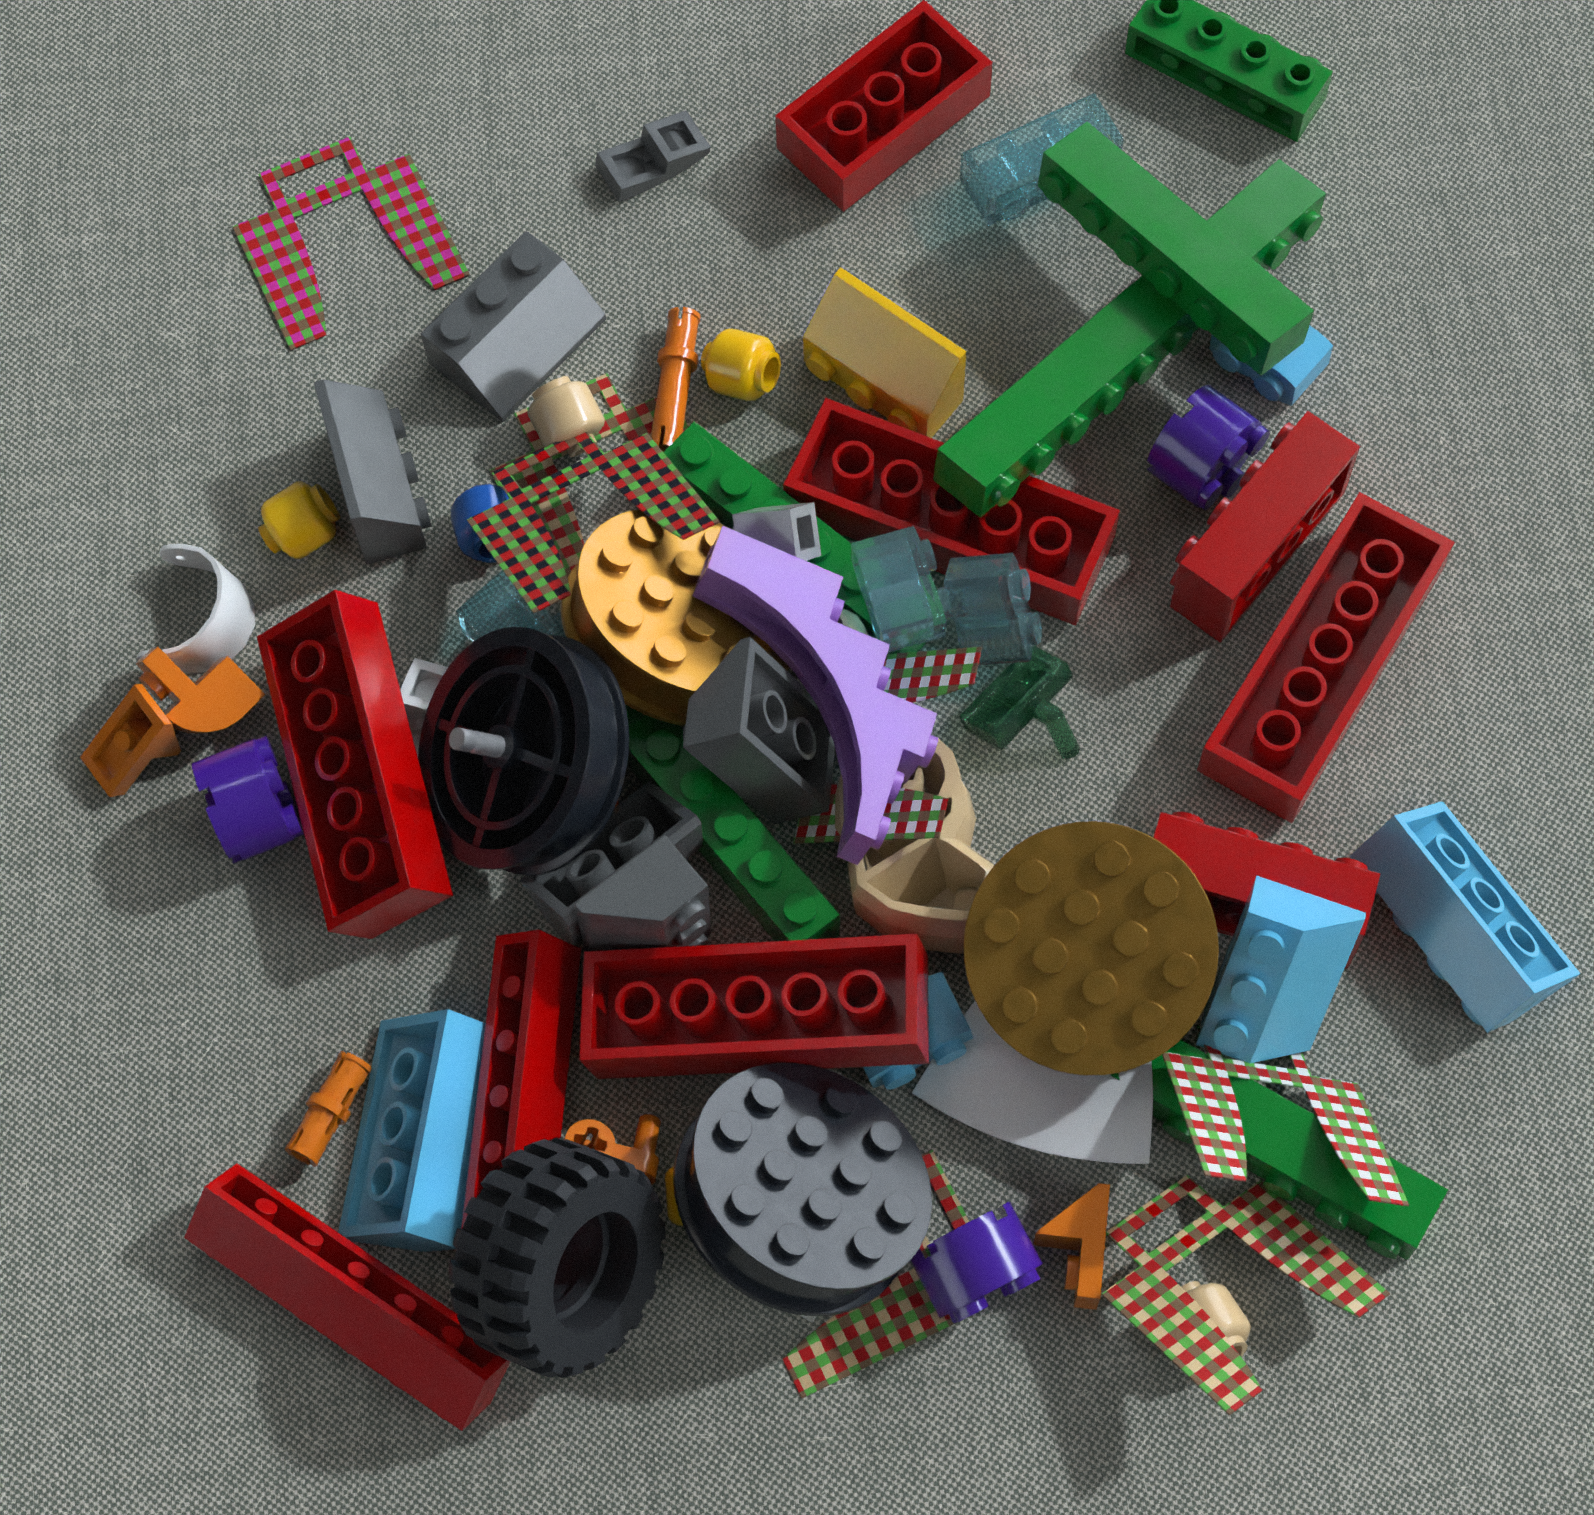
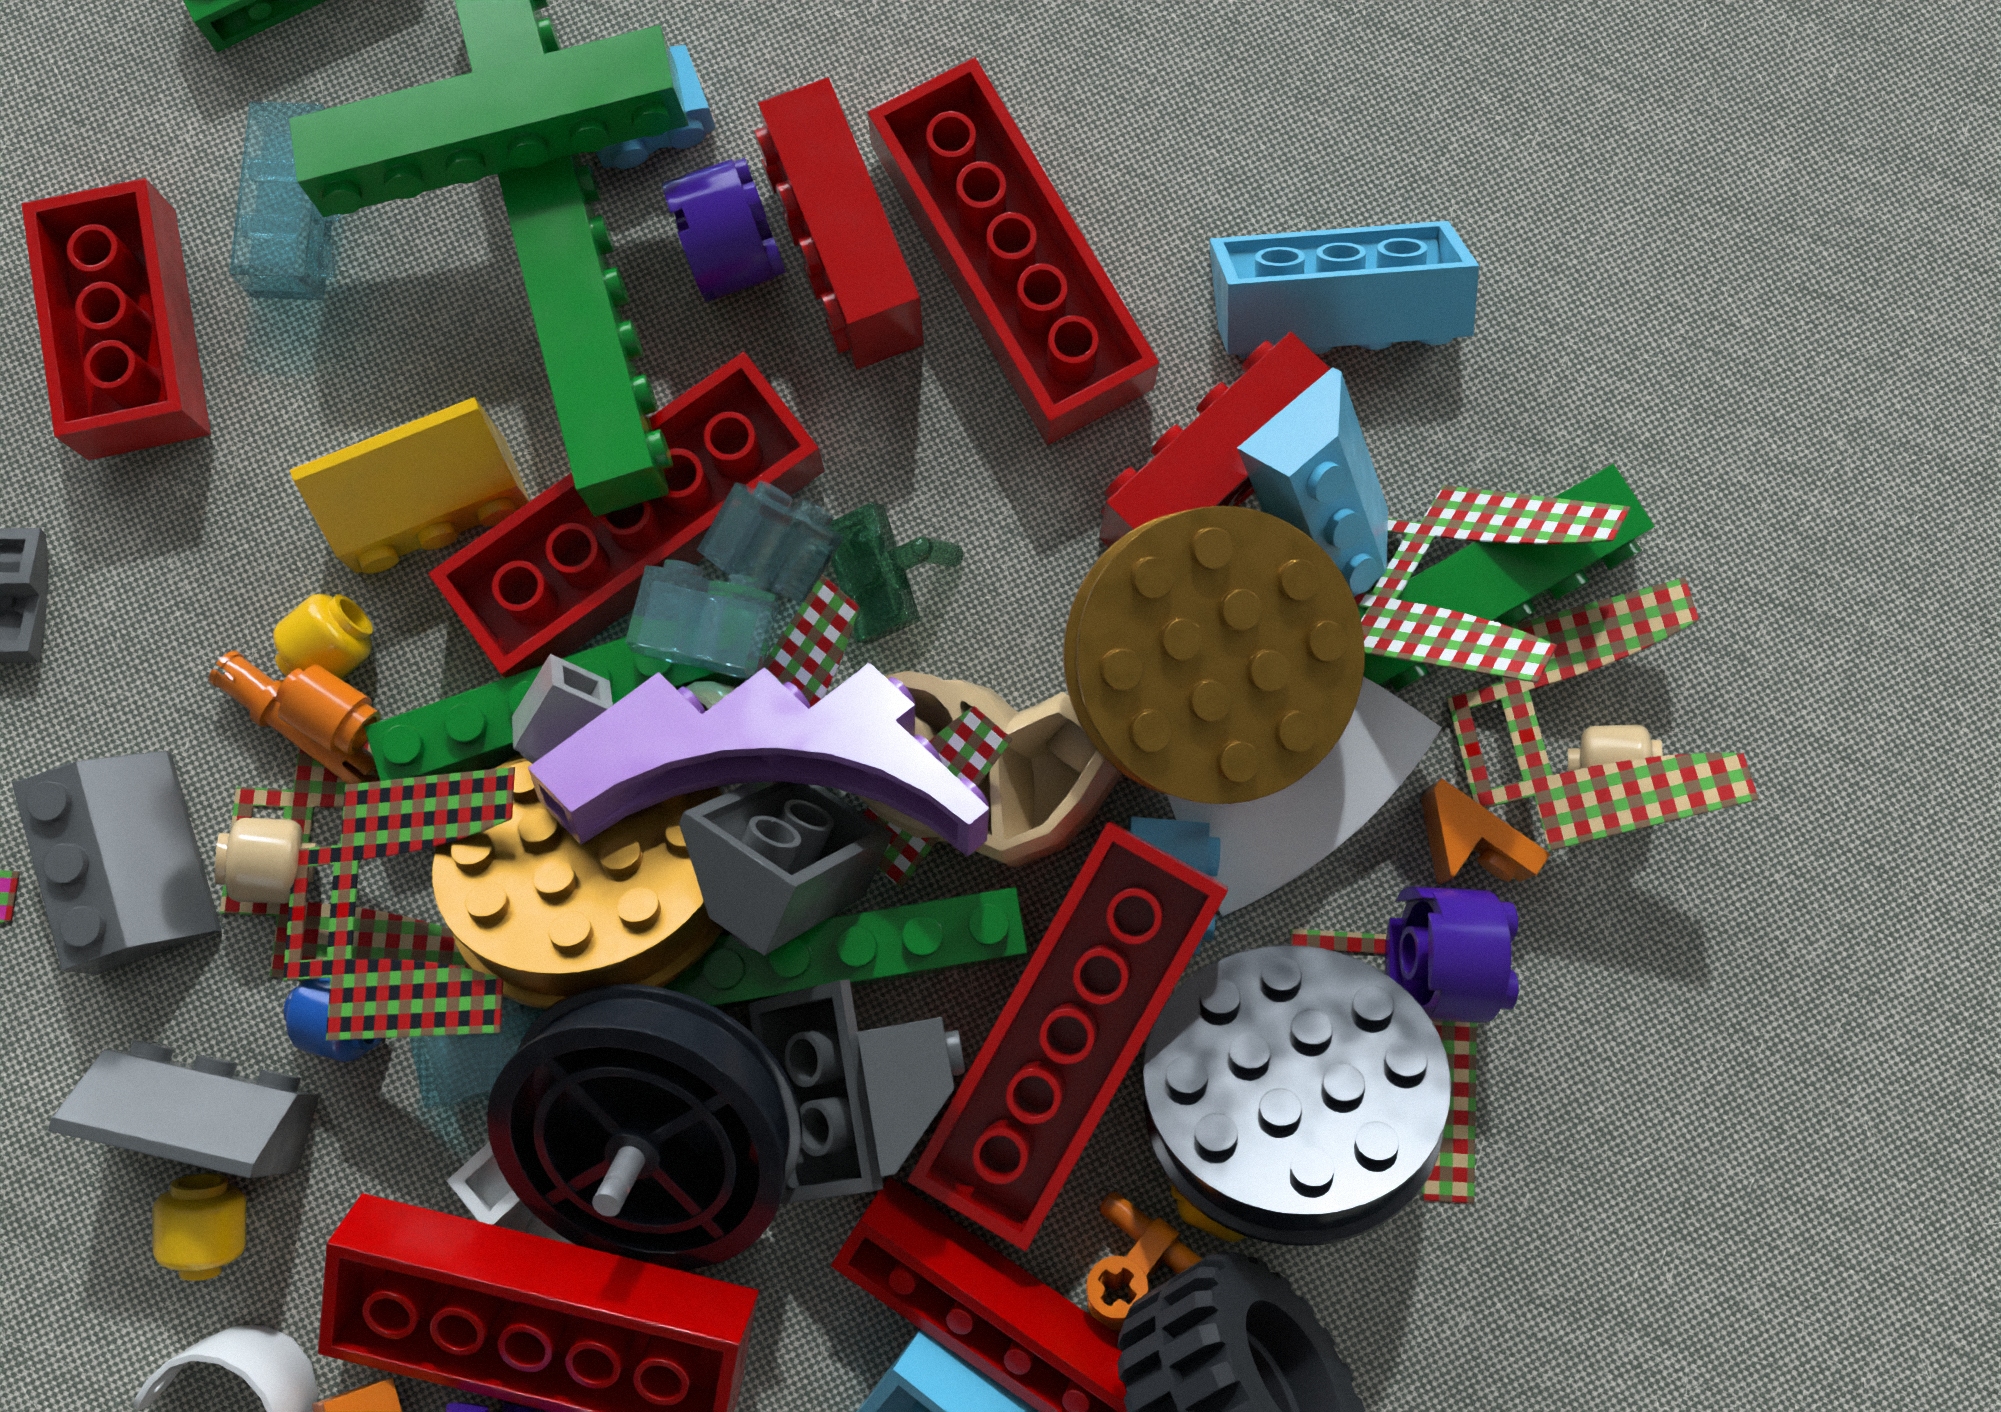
camera: 65 degrees left, 10 degrees up
(692, 391) = (326, 709): none -> orange brick

